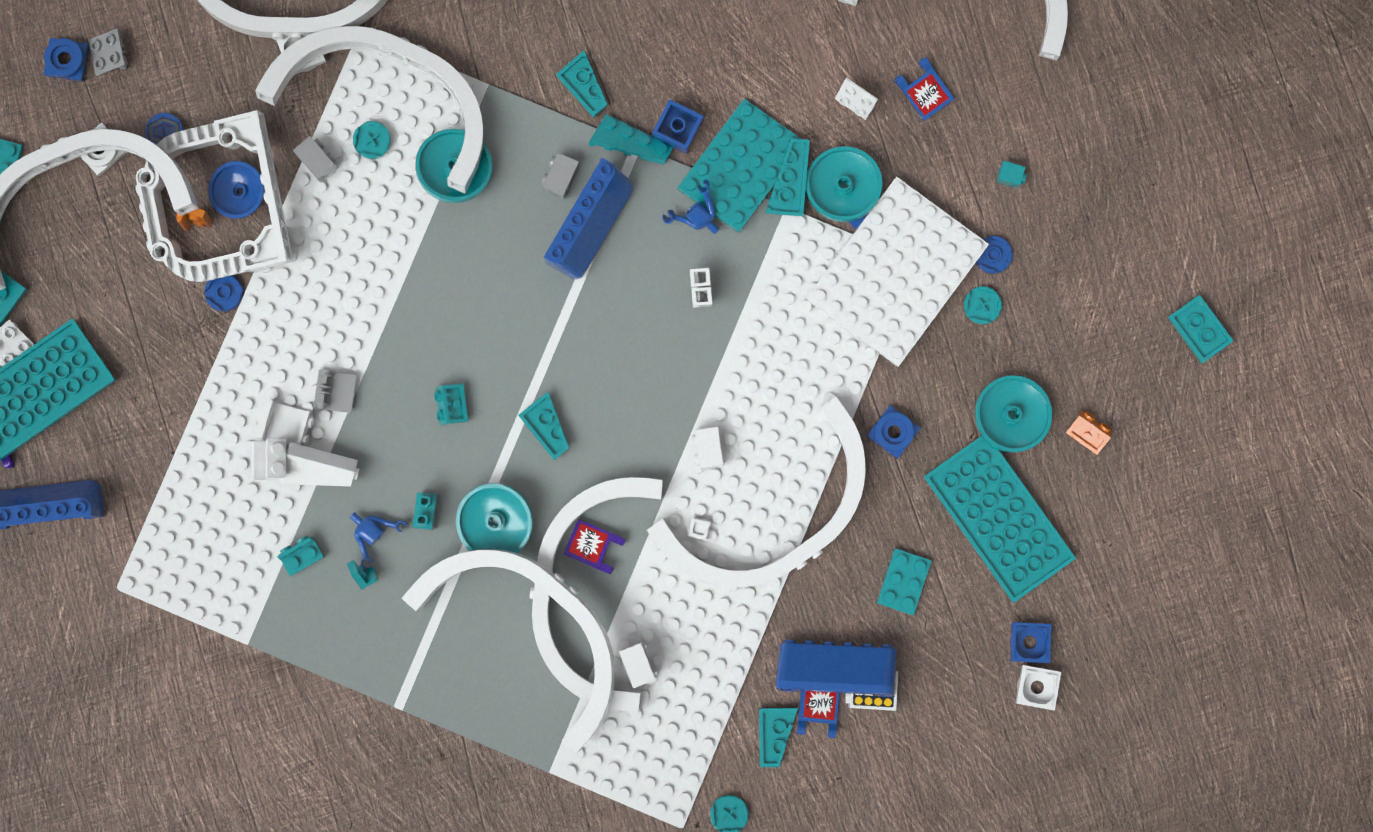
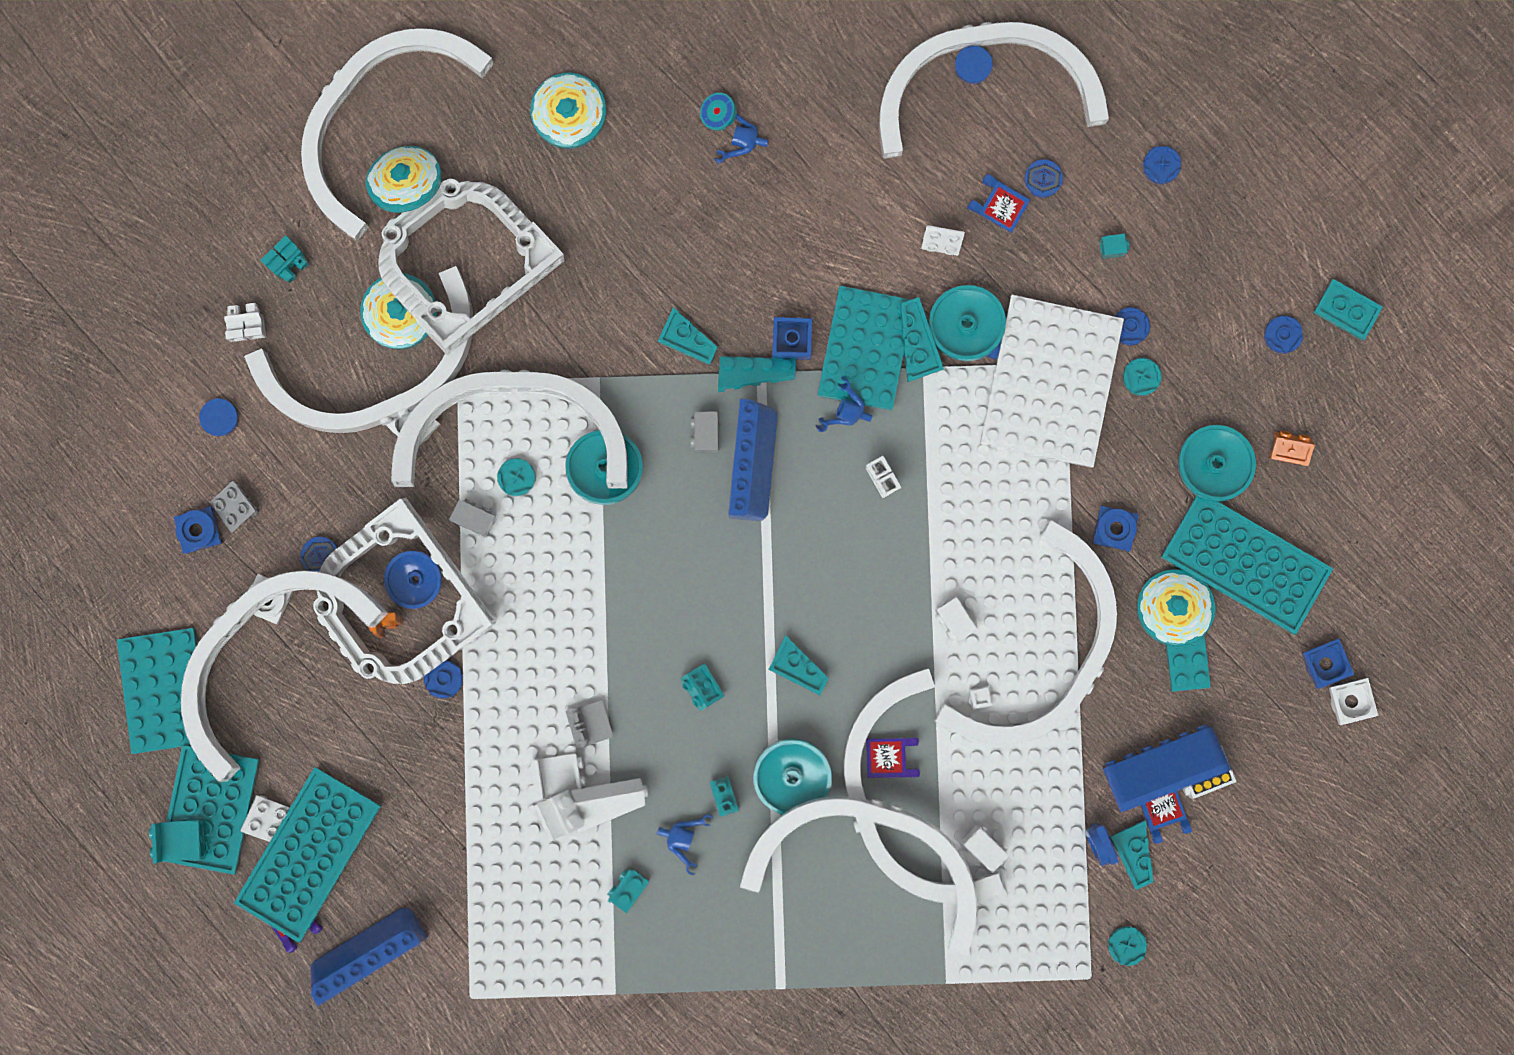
camera: 30 degrees left, 0 degrees up
(362, 577) = (694, 883): teal bracket -> none
(745, 711) = (1100, 845): none -> blue piece
(915, 528) = (1175, 608): none -> dish
(975, 84) = (1043, 178): none -> tile
(1090, 120) = (1162, 164): none -> blue tile
(1130, 325) = (1283, 334): none -> blue tile

